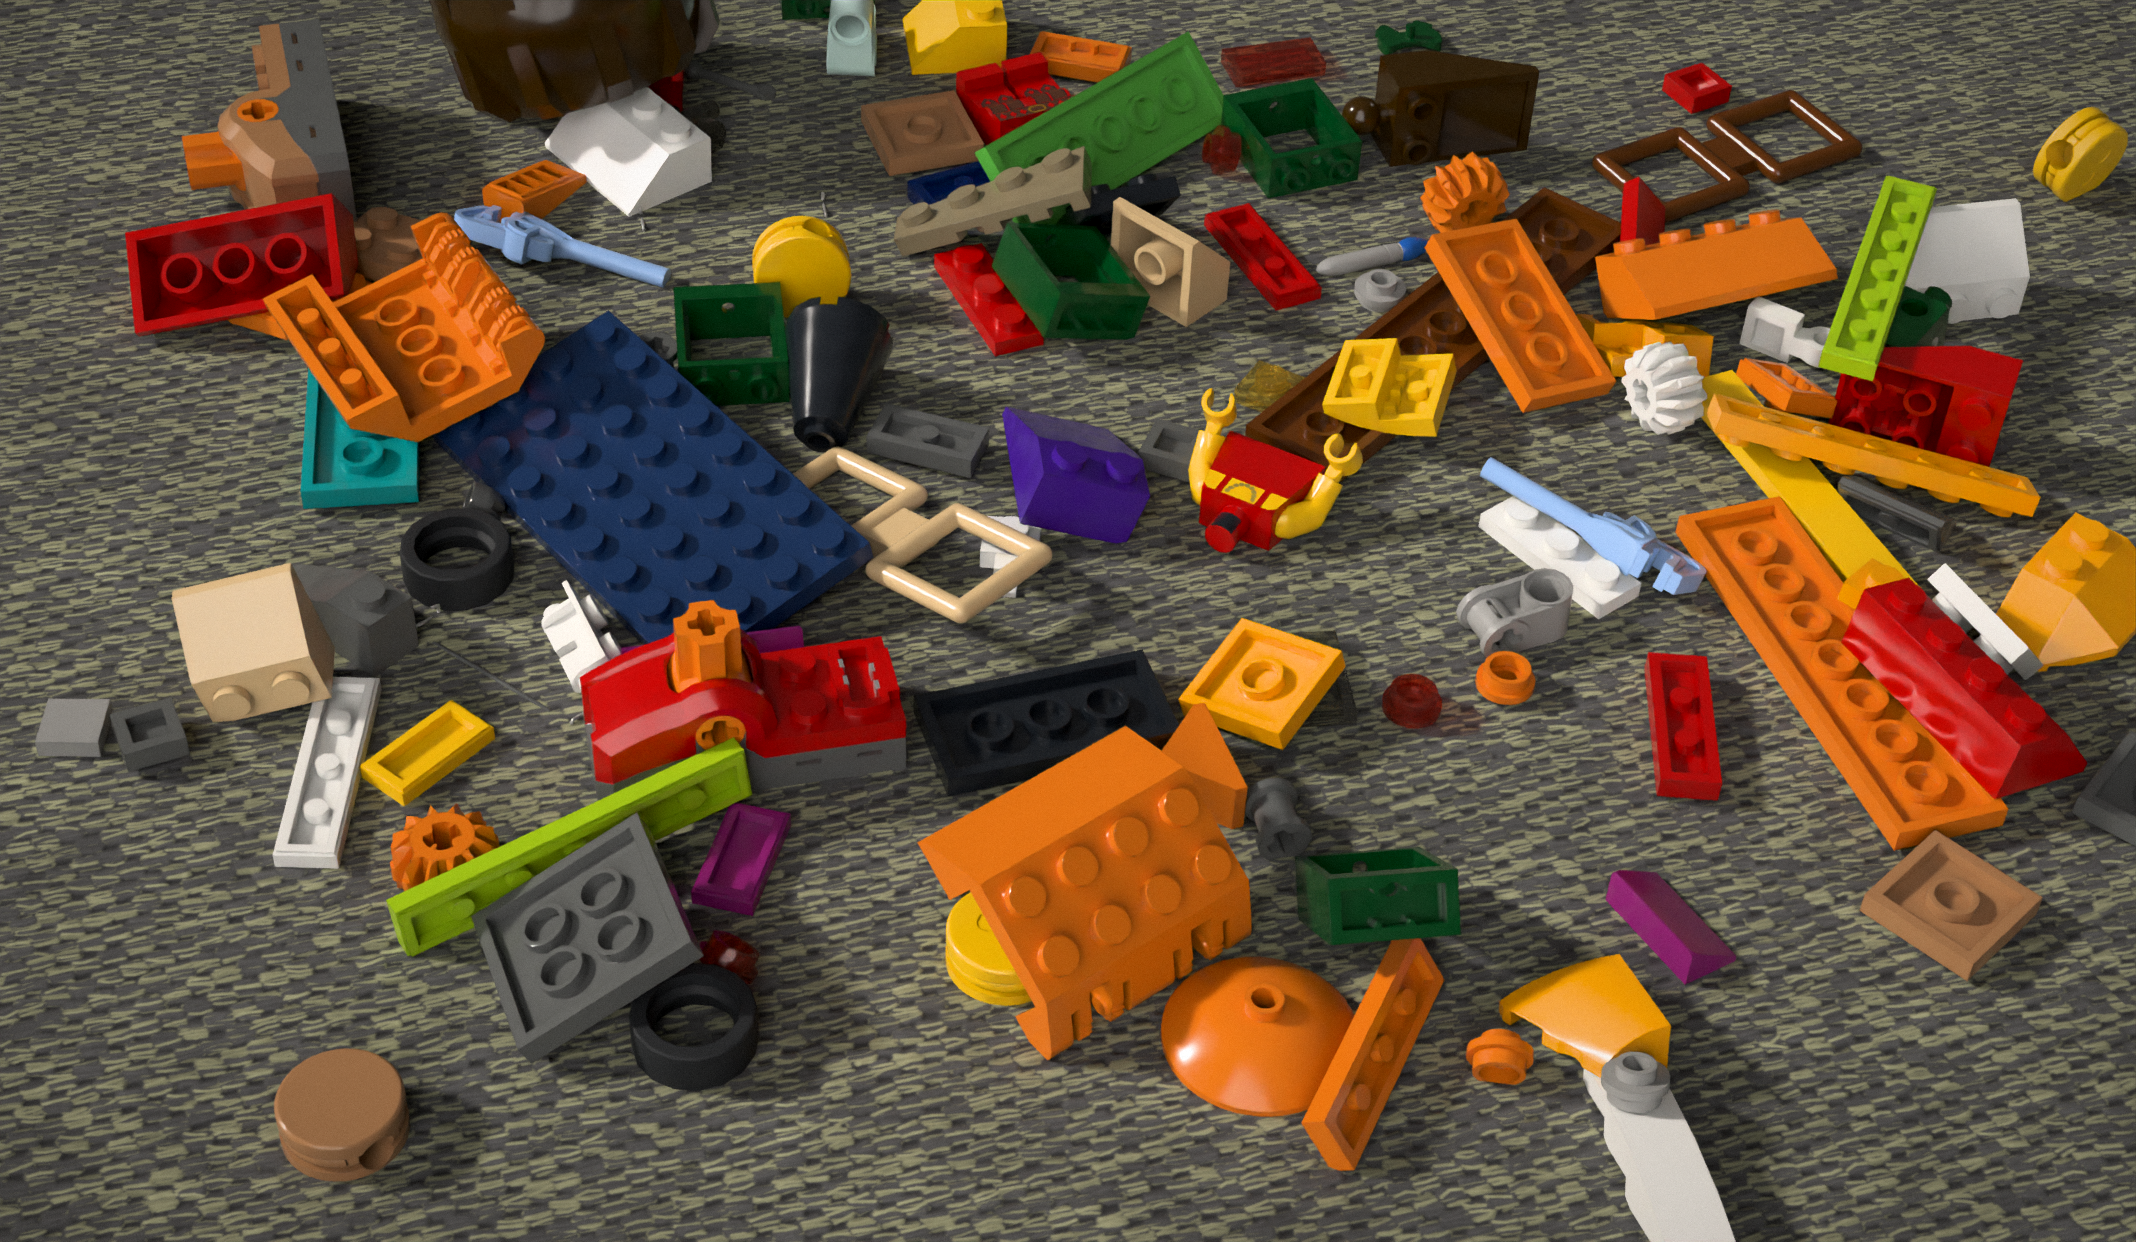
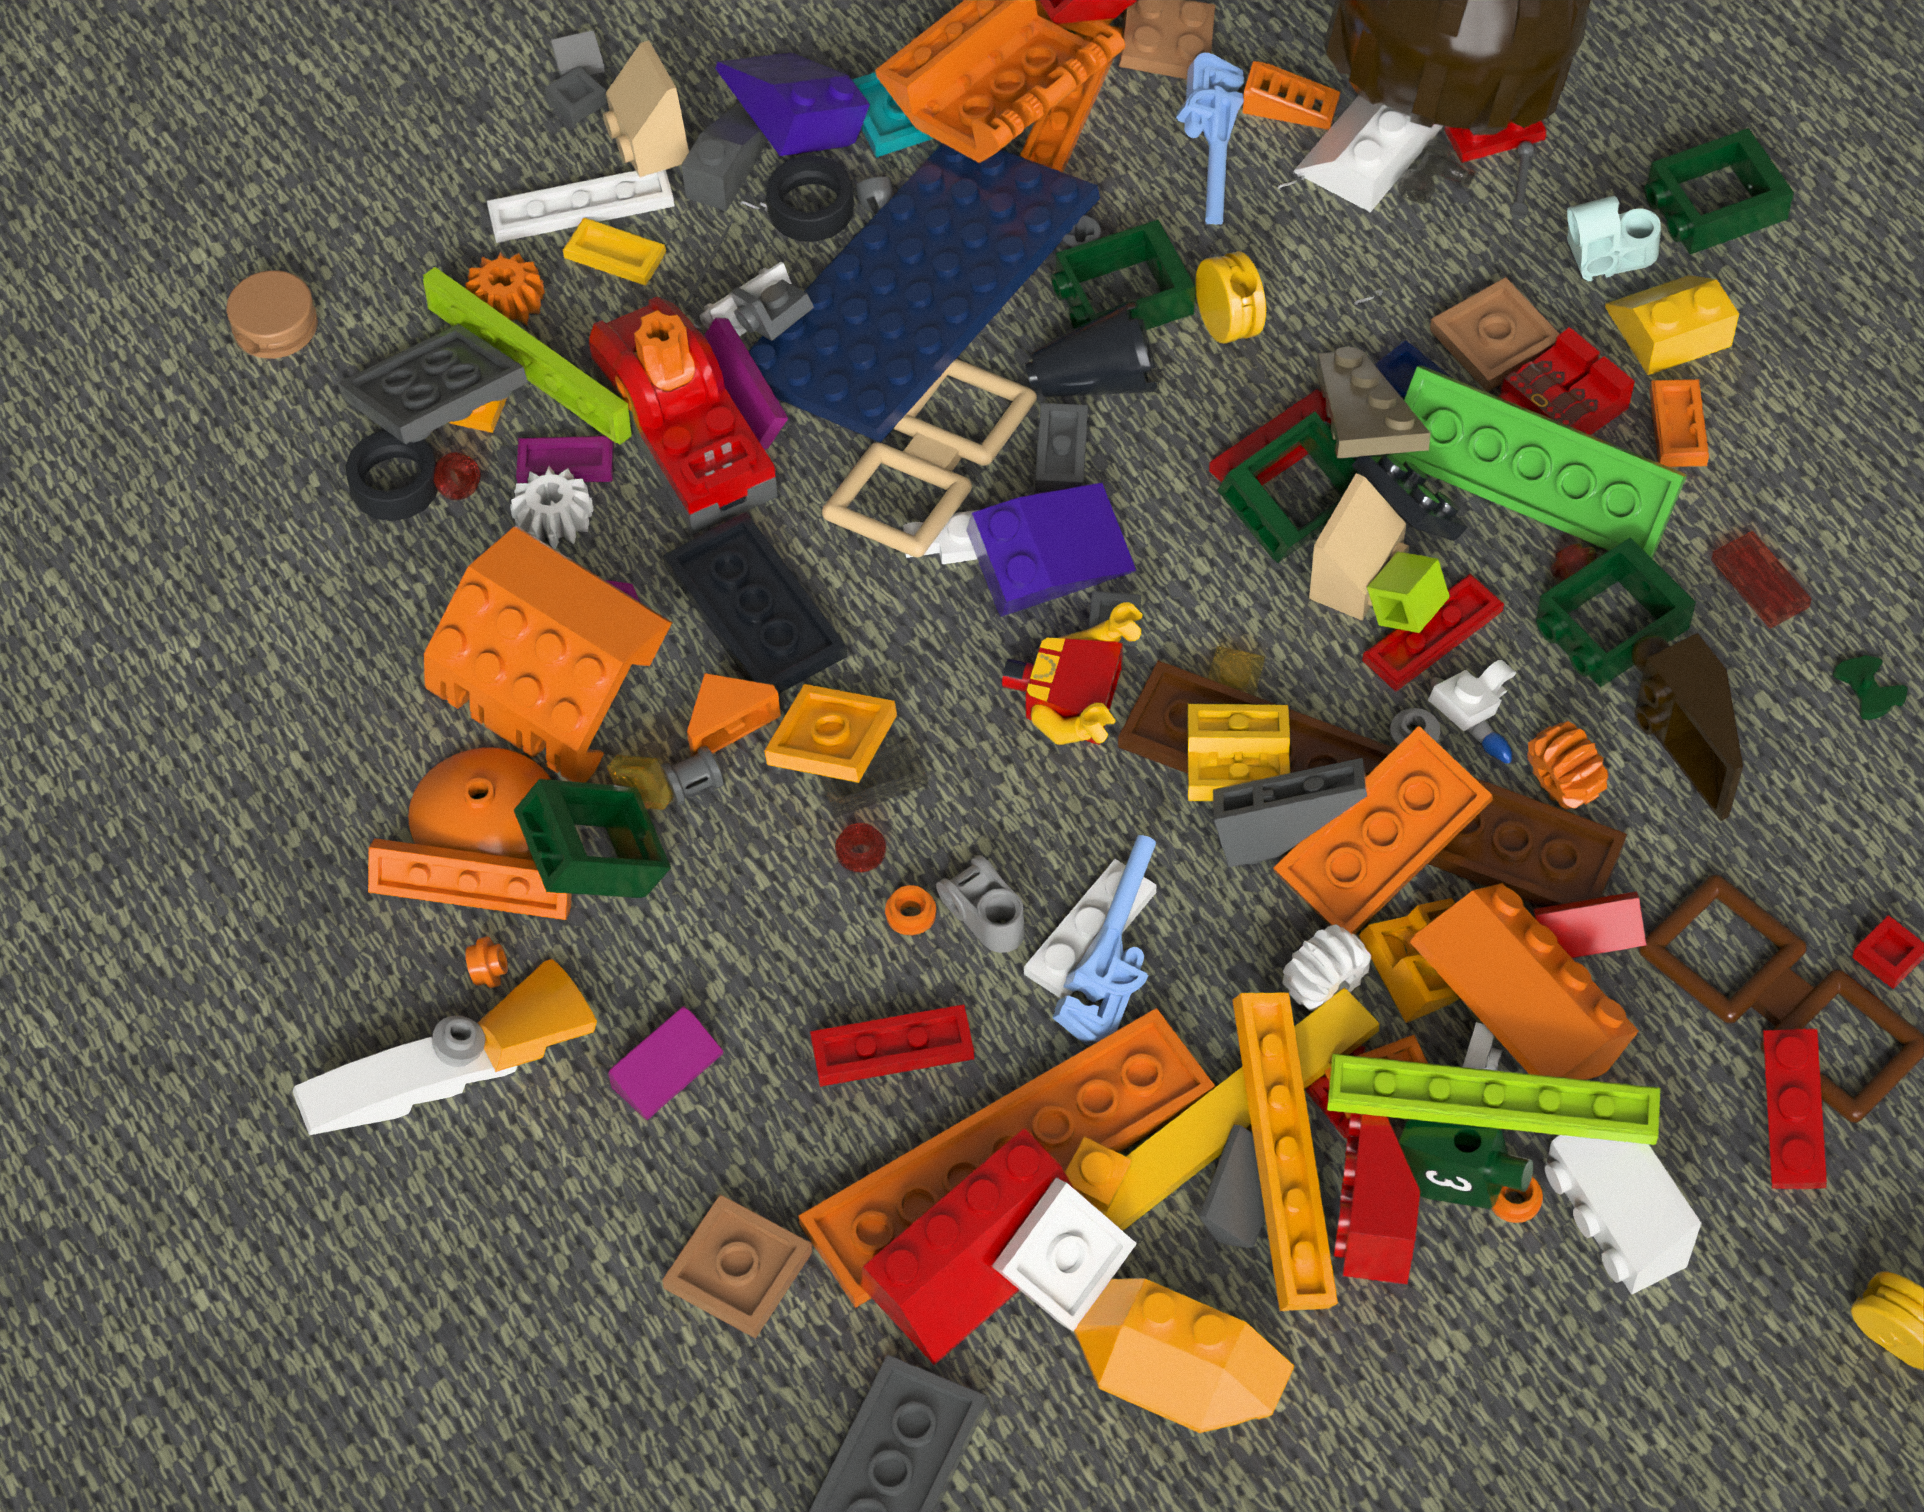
camera: 80 degrees right, 15 degrees up
(313, 522) = (797, 101): none -> dark purple slope
(629, 604) = (773, 311): none -> dark grey bracket
(825, 872) = (552, 506): none -> white gear
(1233, 236) = (1408, 592): none -> lime brick
(1275, 854) = (645, 775): none -> clear yellow plate
(1360, 238) = (1472, 699): none -> white plate
(1480, 361) = (1278, 812): none -> dark grey slope
(1840, 164) = (1794, 1109): none -> red plate

